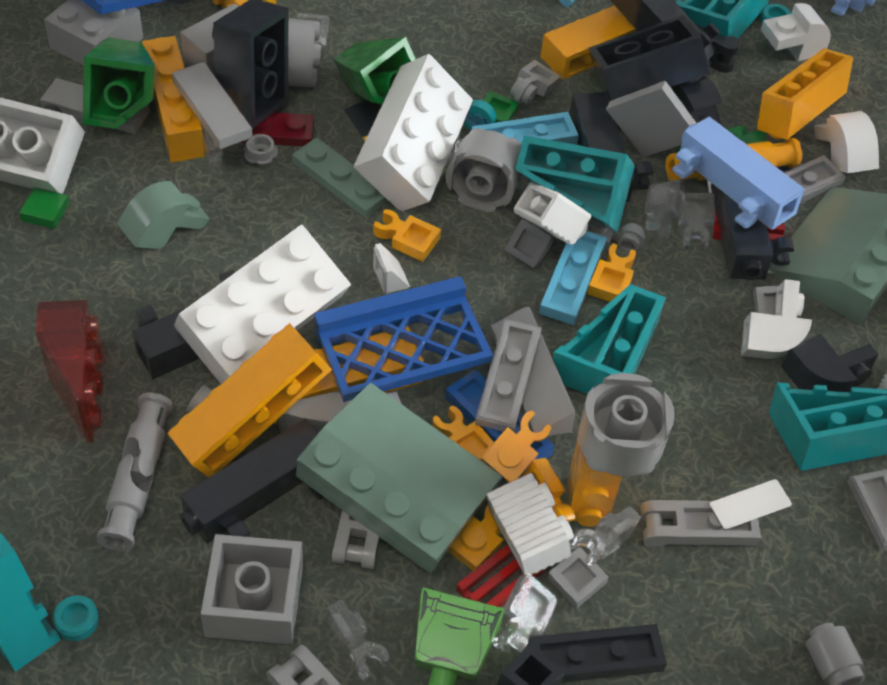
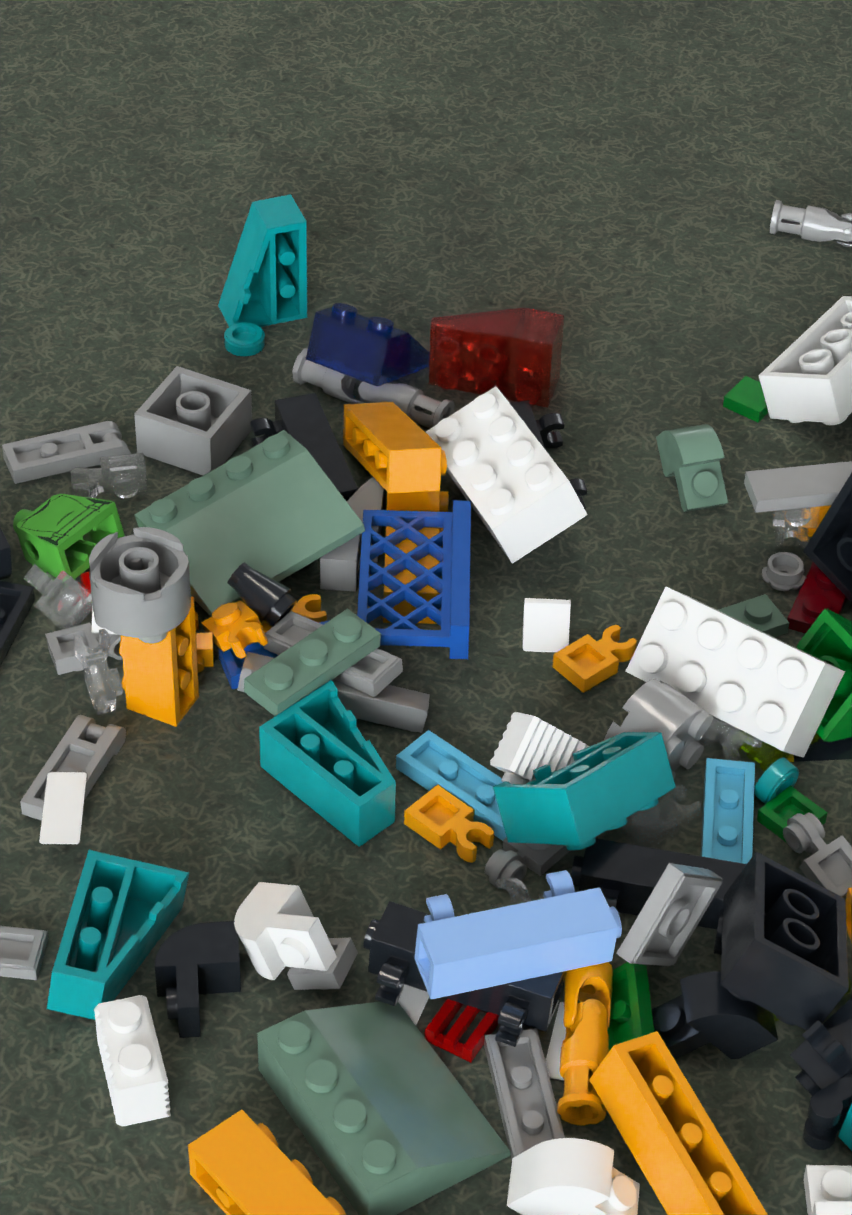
camera: 115 degrees right, 10 degrees down
(98, 470) = (364, 346): none -> clear blue slope
(479, 431) = (262, 594): none -> black cone
(544, 364) = (312, 662): none -> sand green plate

